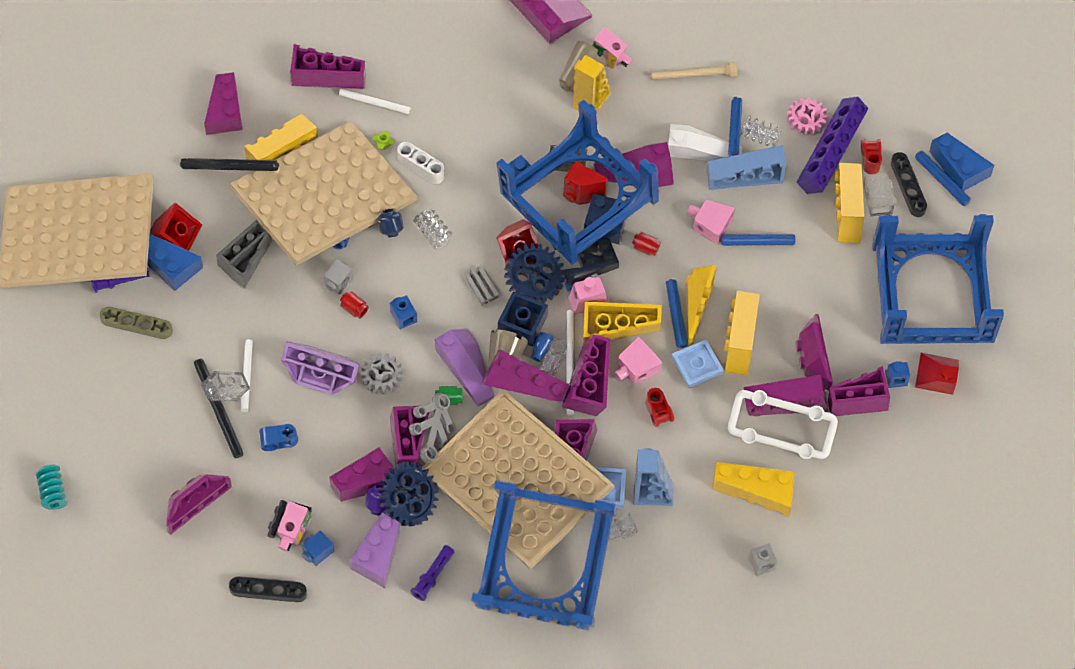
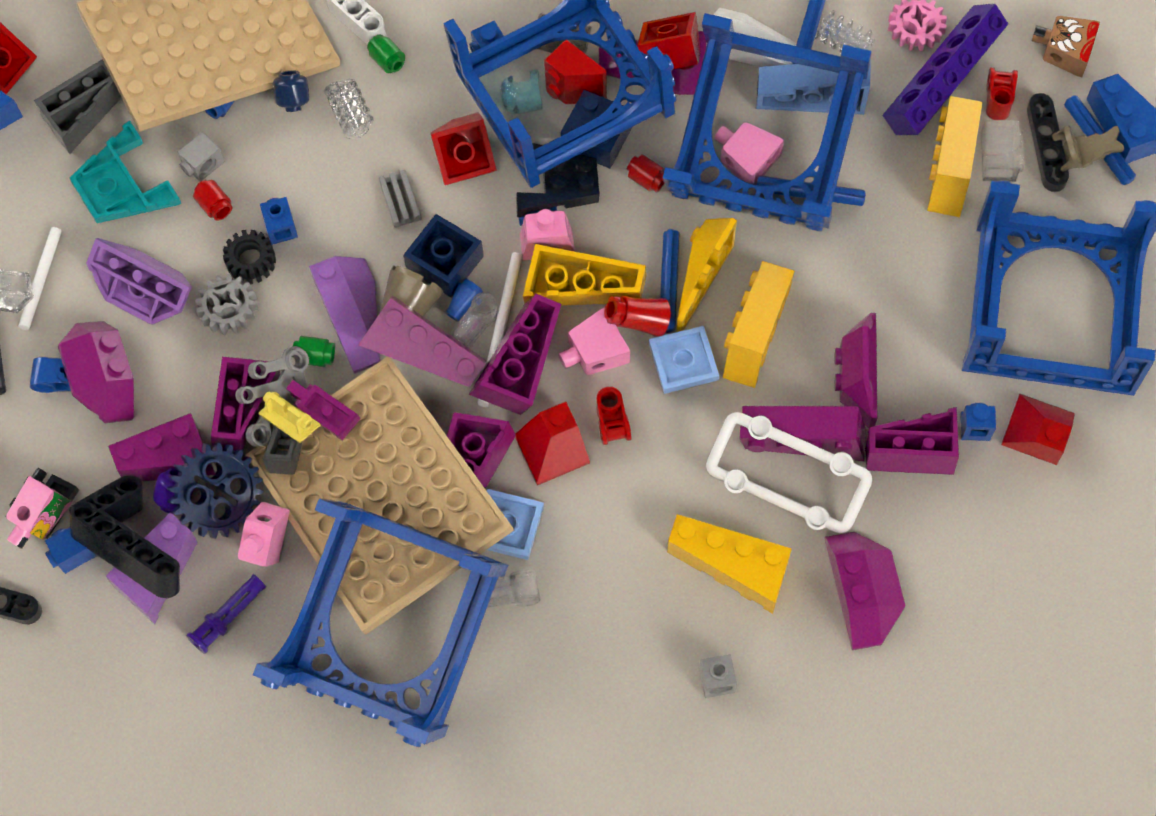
camera: 15 degrees right, 5 degrees up
(280, 308) = (109, 187): none -> teal wing
(308, 429) = (99, 370): none -> magenta wedge
(339, 527) = (98, 527): none -> black beam
(388, 329) = (249, 242): none -> black tyre
(444, 468) = (278, 460): none -> dark grey slope
(447, 439) = (287, 417): none -> light yellow hinge
(448, 517) = (263, 540): none -> bright pink torso
(449, 188) = (386, 53): none -> green brick
(468, 430) = (324, 409): none -> magenta hinge
(541, 258) = (492, 174): dark blue gear -> none
(550, 204) = (521, 96): none -> clear light blue helmet
(622, 431) = (552, 444): none -> red slope
(647, 147) = (675, 37): none -> red slope
(652, 480) = (573, 527): medium blue wedge -> none
(663, 337) = (639, 314): none -> red plant
(766, 251) = (685, 176): none -> blue arch
(845, 490) = (865, 587): none -> magenta wedge
(910, 115) = (1068, 43): none -> medium nougat torso
(935, 186) = (1084, 150): none -> dark tan hair

